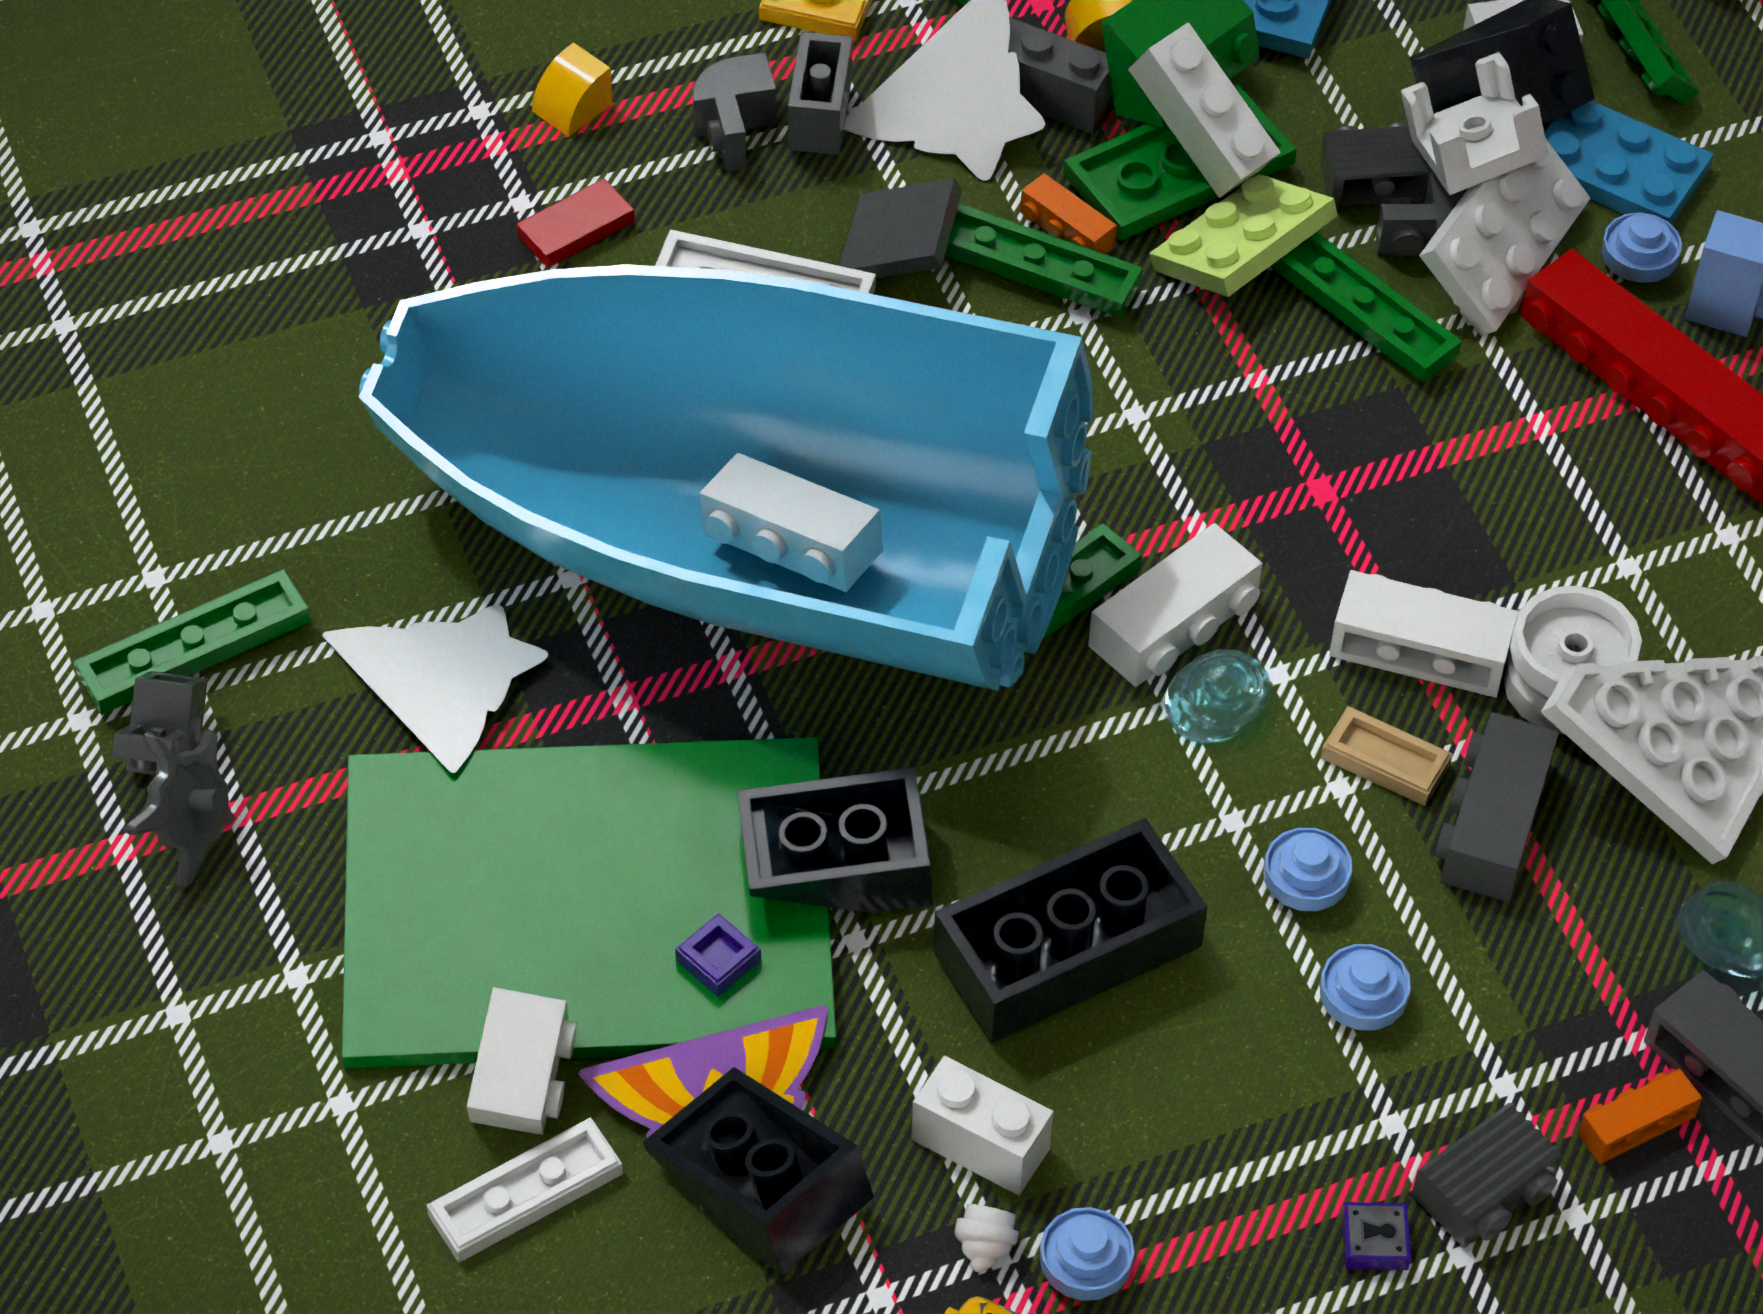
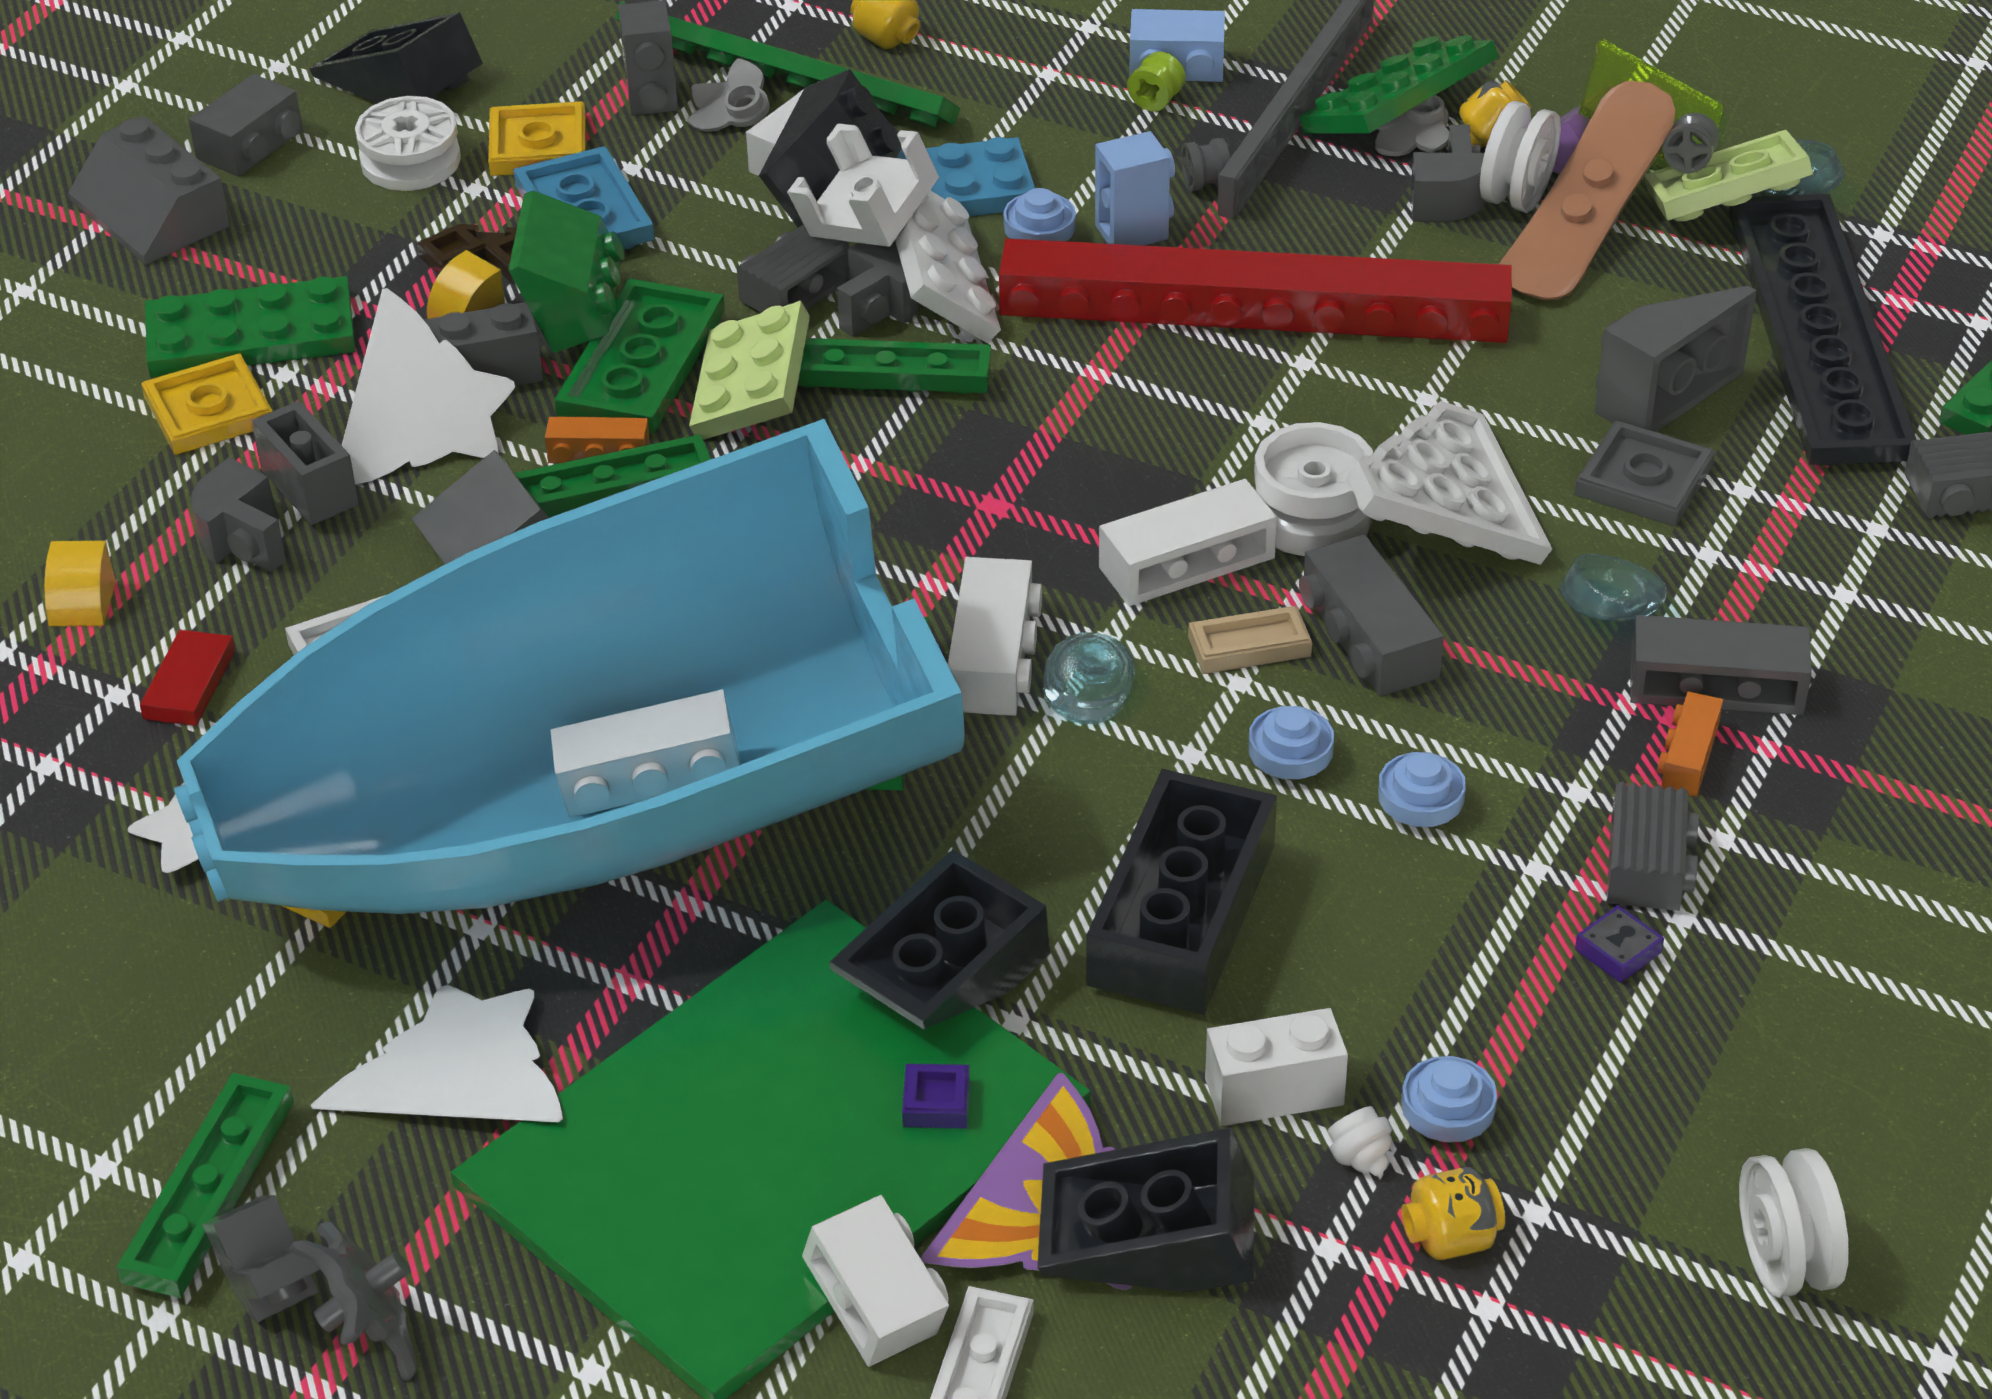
camera: 40 degrees left, 10 degrees down
(1204, 110) = (648, 289): white brick -> none

